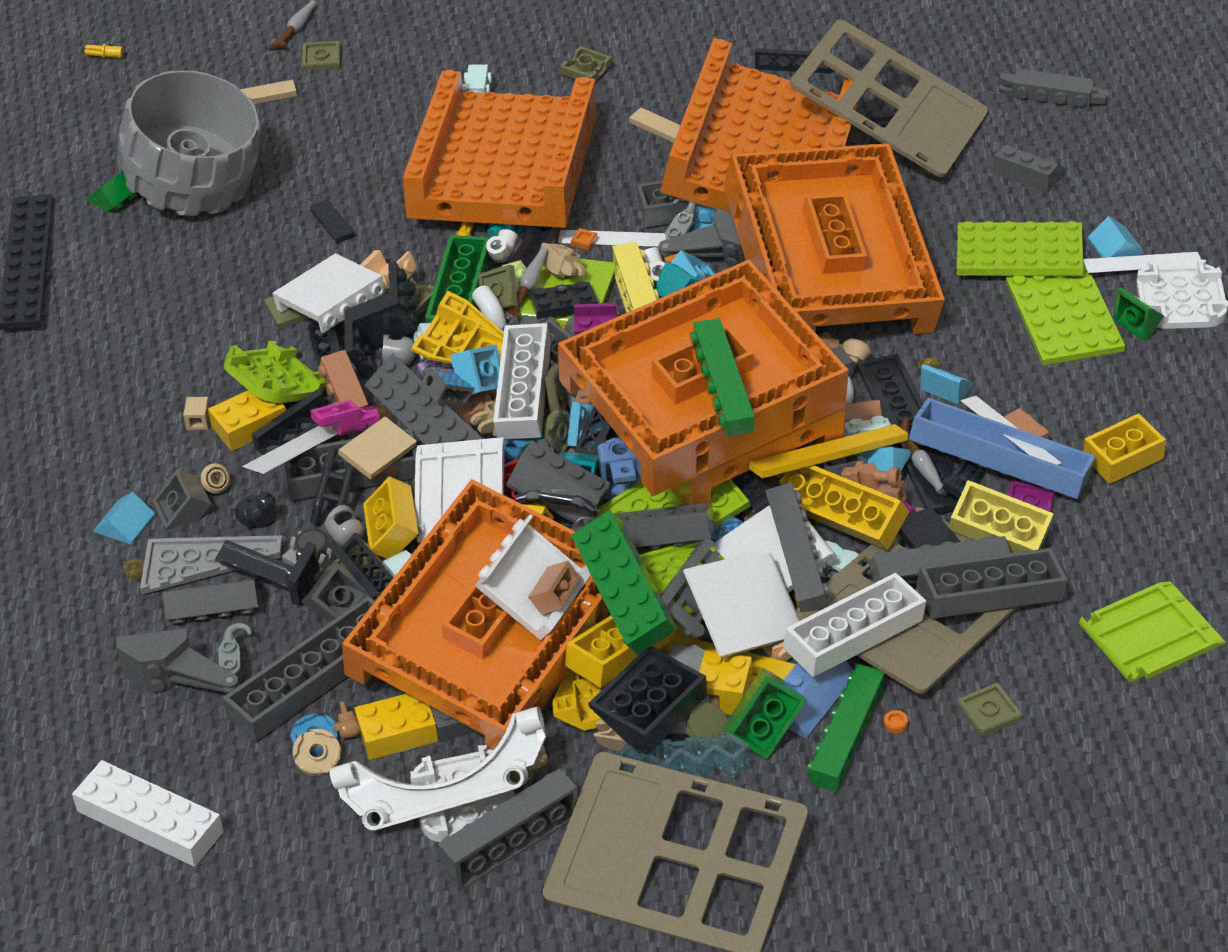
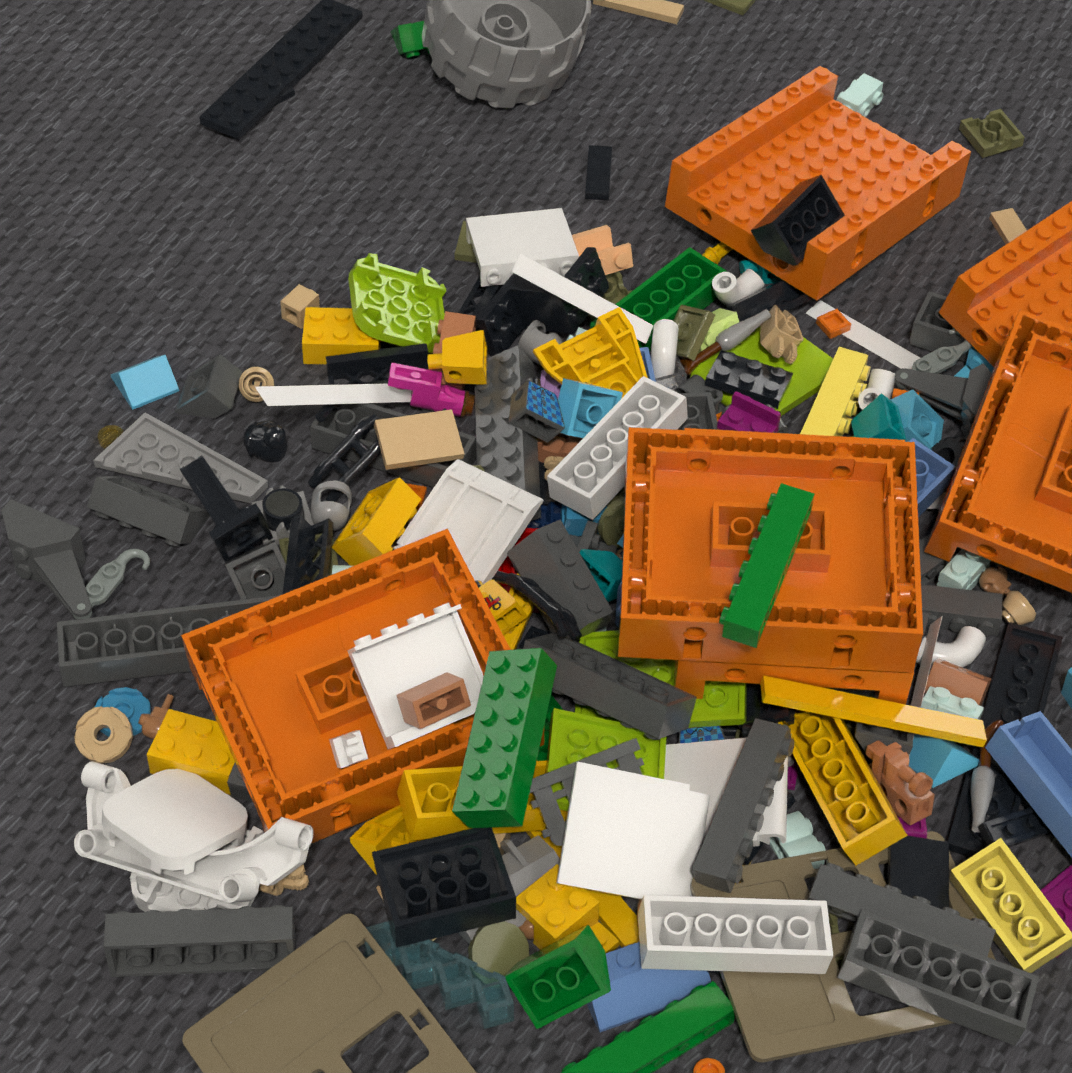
camera: 30 degrees right, 5 degrees up
(361, 382) = (462, 359): none -> yellow torso
(400, 298) = (575, 294): none -> white sticker
(424, 768) = (174, 819): none -> white tile
(518, 651) = (348, 749): none -> white tile
(520, 177) = (797, 220): none -> black slope

